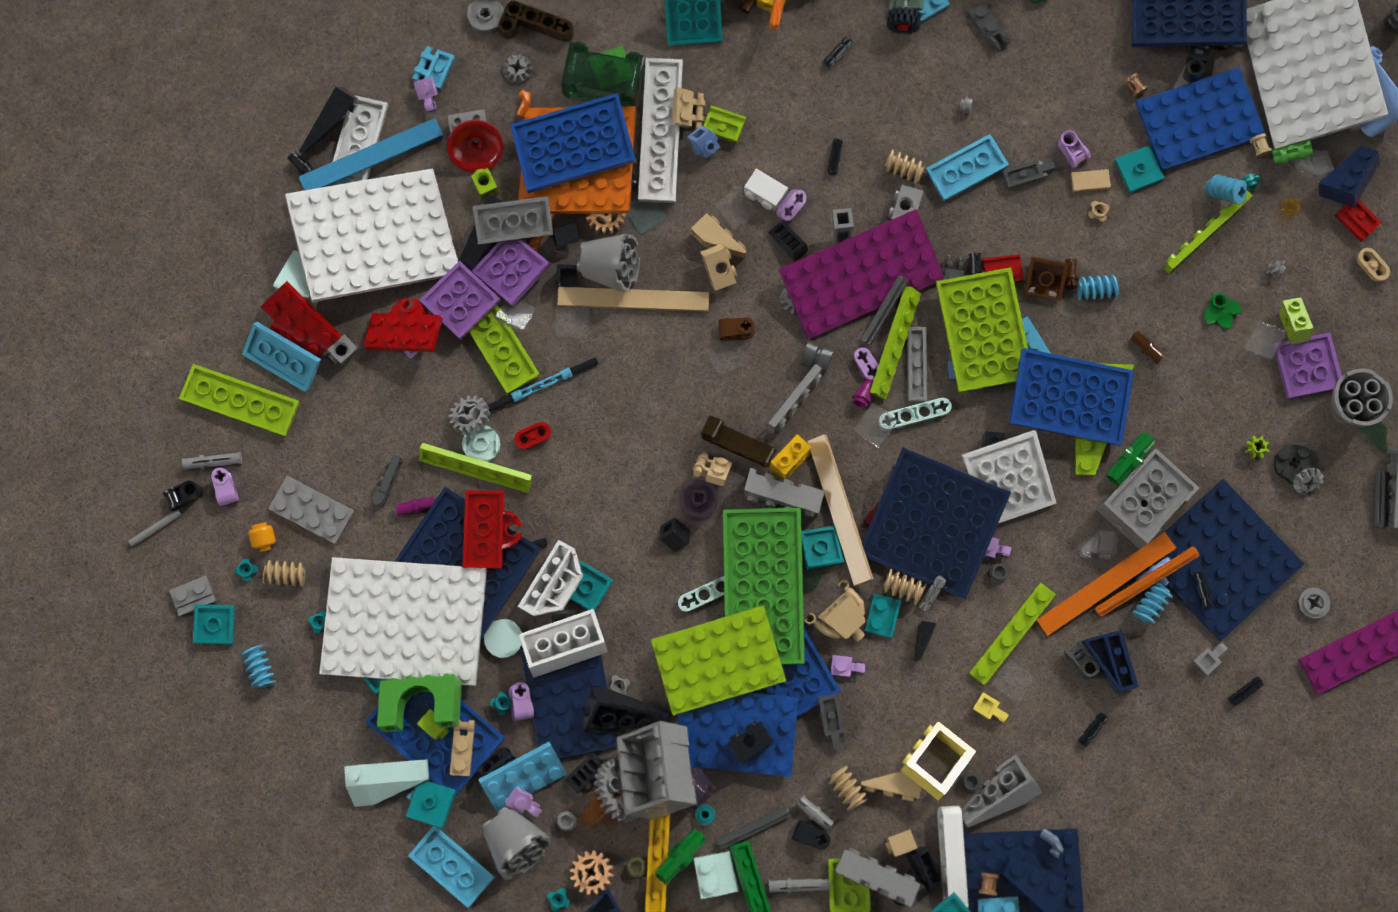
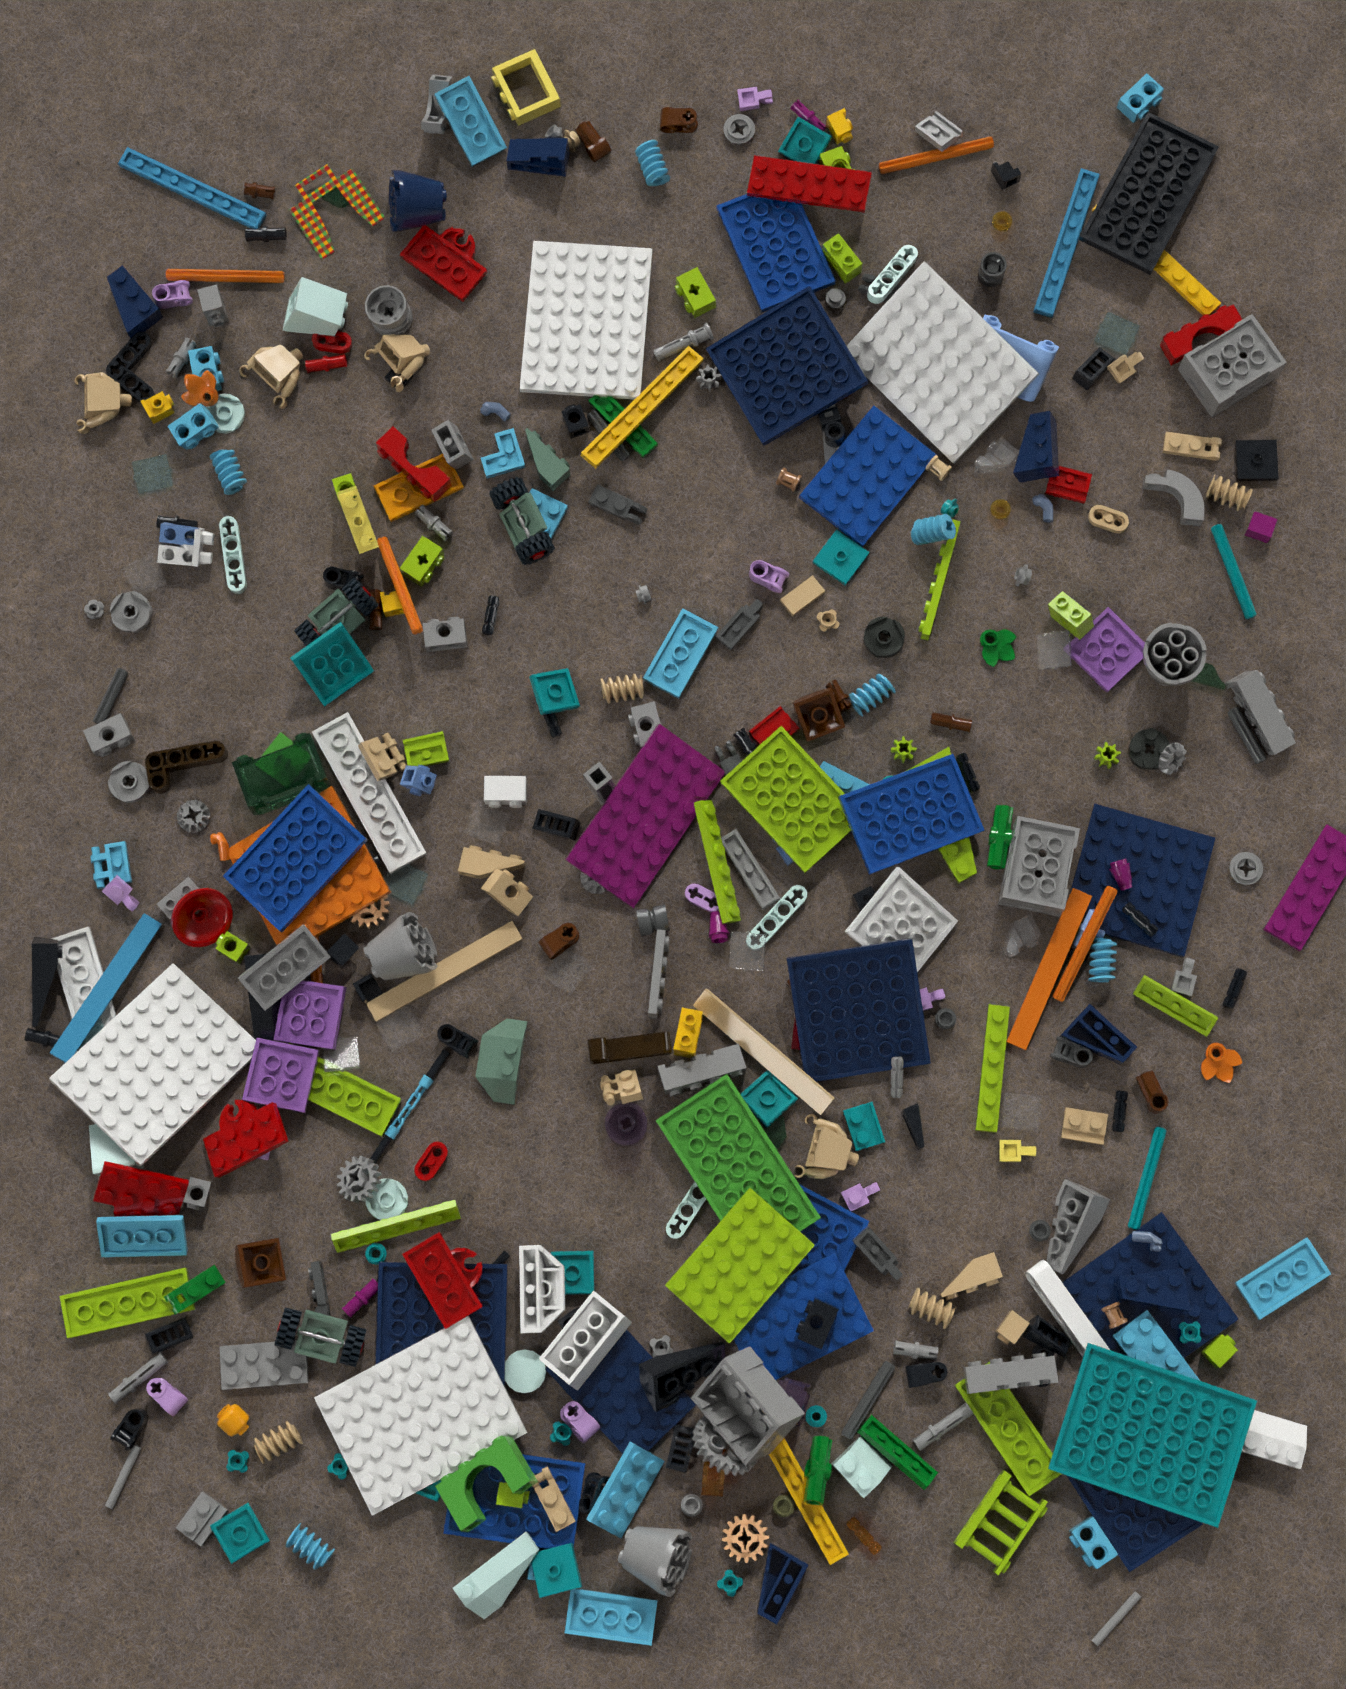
camera: 30 degrees left, 0 degrees up
(245, 450) = (171, 1343): none -> black slope
(295, 421) = (195, 1289): none -> green plate
(356, 431) = (259, 1263): none -> reddish brown slope
(365, 514) = (320, 1336): none -> plate
(447, 473) = (375, 1246): none -> teal plate
(521, 800) = (638, 1512): lavender plate -> none
(610, 359) = (458, 1040): none -> black piece
(634, 392) = (501, 1060): none -> sand green wedge
(674, 534) = (624, 1171): black panel -> none
(791, 204) = (538, 789): lavender beam -> none
(797, 54) = (456, 638): none -> light grey brick
(850, 138) = (554, 691): none -> teal plate
(884, 310) = (688, 836): dark grey axle -> none
(904, 587) = (867, 1087): tan piece -> none
(924, 779) = (997, 1256): window -> none
(1057, 723) = (1084, 1126): none -> tan plate
(1082, 795) = (1147, 1178): none -> teal axle
(1098, 341) = (903, 743): none -> lime gear
(1129, 729) = (1151, 1089): none -> reddish brown piece
(1136, 394) = (967, 772): none -> black axle
(1143, 243) = (887, 626): none -> pearl dark grey plate
(1189, 674) = (1175, 1005): none -> lime plate
(1196, 744) = (1220, 1066): none -> orange plate
(1211, 544) = (1121, 873): none -> magenta cone
(1292, 152) = (972, 458): bright green plate -> none
(1329, 223) = (1047, 506): none -> sand blue arm

